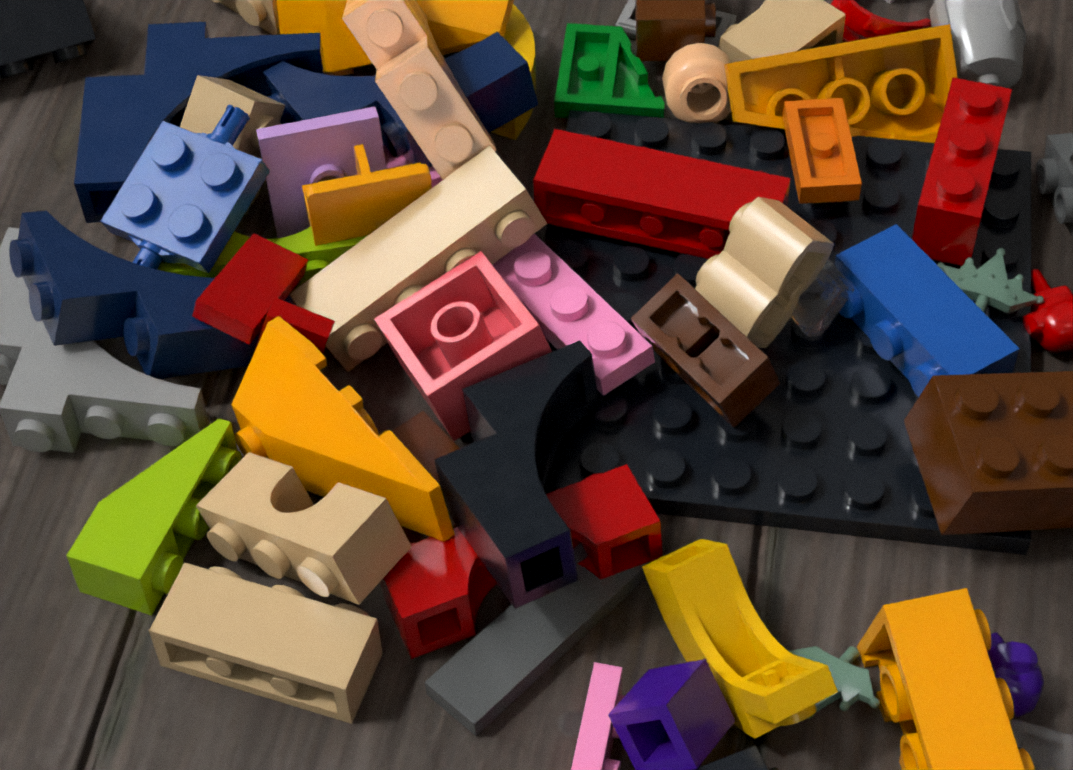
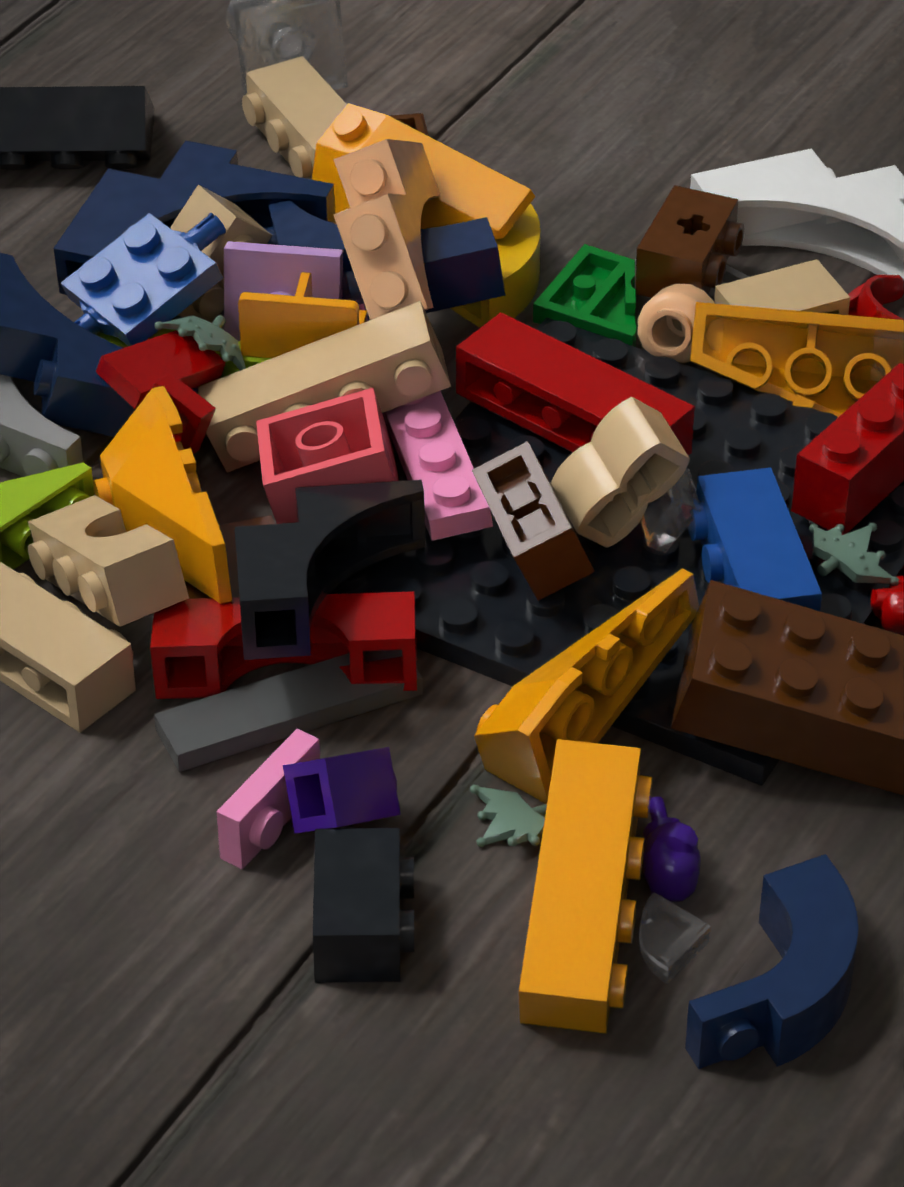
camera: 20 degrees right, 10 degrees down
(280, 237) = (208, 336): none -> sand green piece
(716, 622) = (431, 750): yellow arch -> none
(821, 151) = (752, 401): orange plate -> none
(827, 551) = (583, 687): none -> light orange wedge

